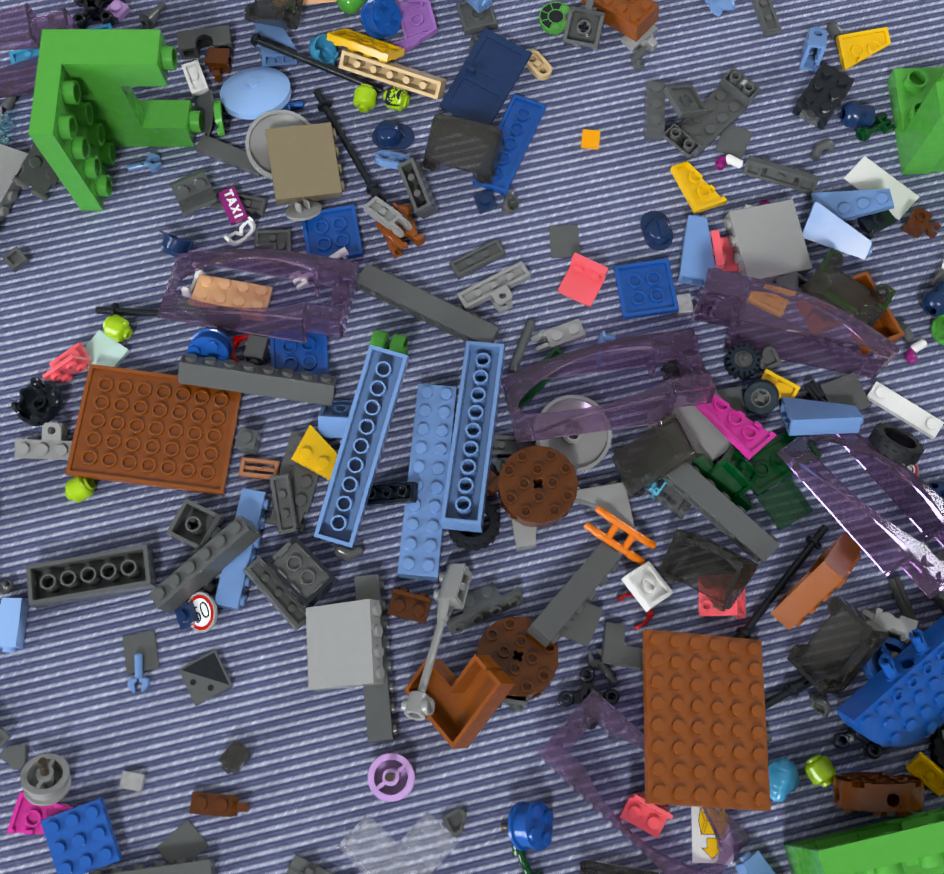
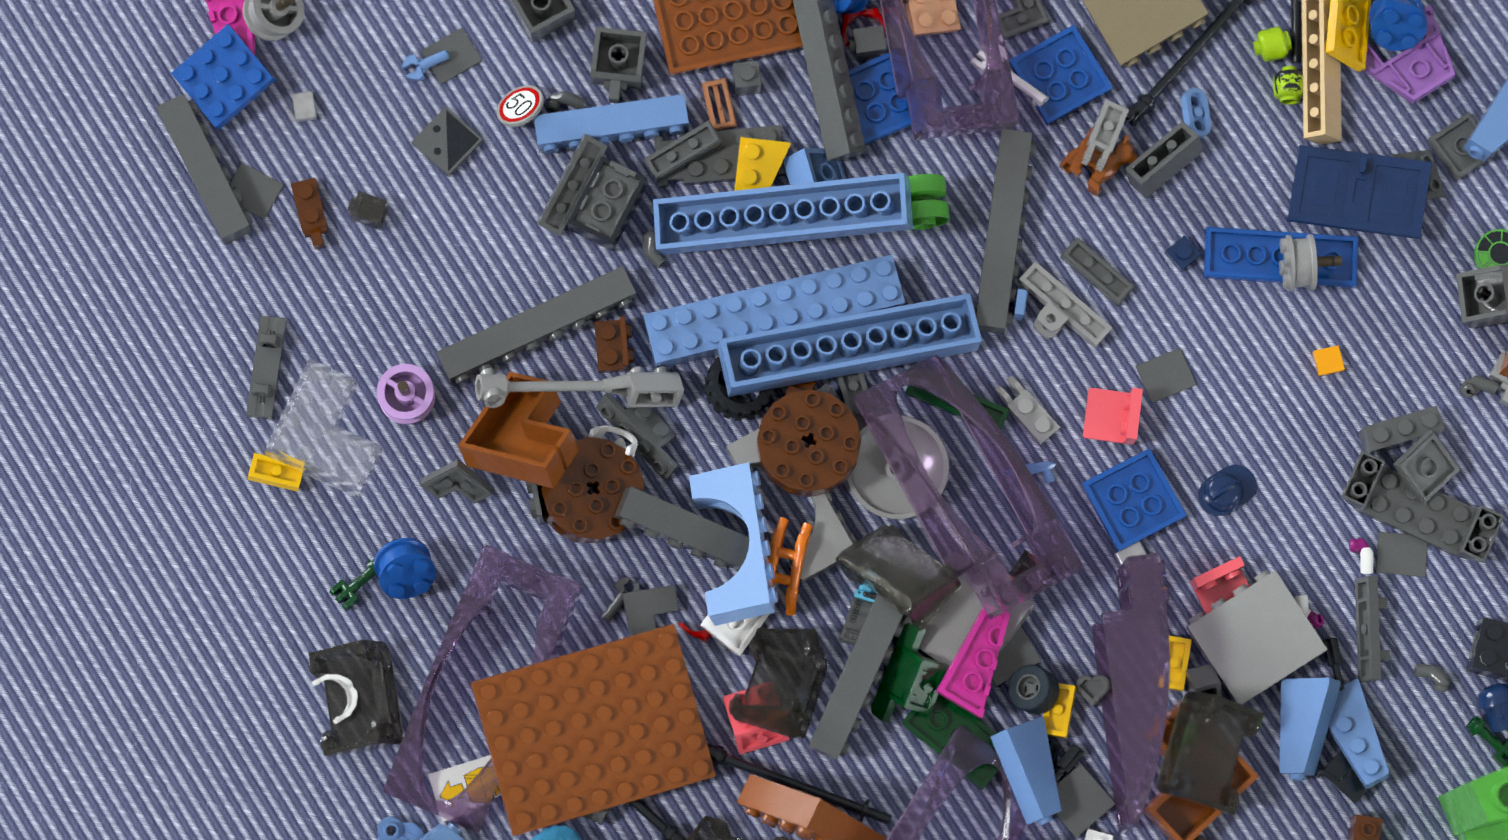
camera: 65 degrees right, 5 degrees up
(186, 615) = (510, 90): dark blue plate -> none
(204, 564) = (575, 87): dark grey brick -> none
(303, 211) = (1078, 27): light grey piece -> none
(344, 645) = (537, 283): light grey brick -> none
(393, 135) = (1235, 101): dark blue piece -> none
(393, 494) = (740, 274): black tile -> none
(454, 821) = (382, 485): dark grey tile -> none
(464, 146) = (1241, 199): clear smoke windscreen -> none
(472, 758) = (457, 477): none -> dark grey tile
(473, 636) = (599, 431): none -> white helmet
(484, 313) = (1020, 304): none -> medium blue tile
(510, 203) = (1190, 286): dark grey piece -> none
(521, 347) = (995, 368): dark grey piece -> none
(523, 125) = (1301, 262): none -> light grey wheel
(539, 65) = (1414, 255): tan plate -> none
(577, 698) = (588, 588): black gear -> none
(584, 625) = (661, 559): dark grey tile -> none
(637, 563) = (750, 590): none -> light blue arch
(647, 817) = (460, 704): coral bracket -> none
(695, 190) = (1303, 524): yellow wing -> none
(696, 251) = (1203, 550): medium blue slope -> none
(742, 361) = (1075, 653): black wheel -> none
(785, 504) = (902, 763): clear green tile -> none
(797, 202) = (1334, 659): none -> black axle
(869, 176) = (1410, 768): white sticker -> none

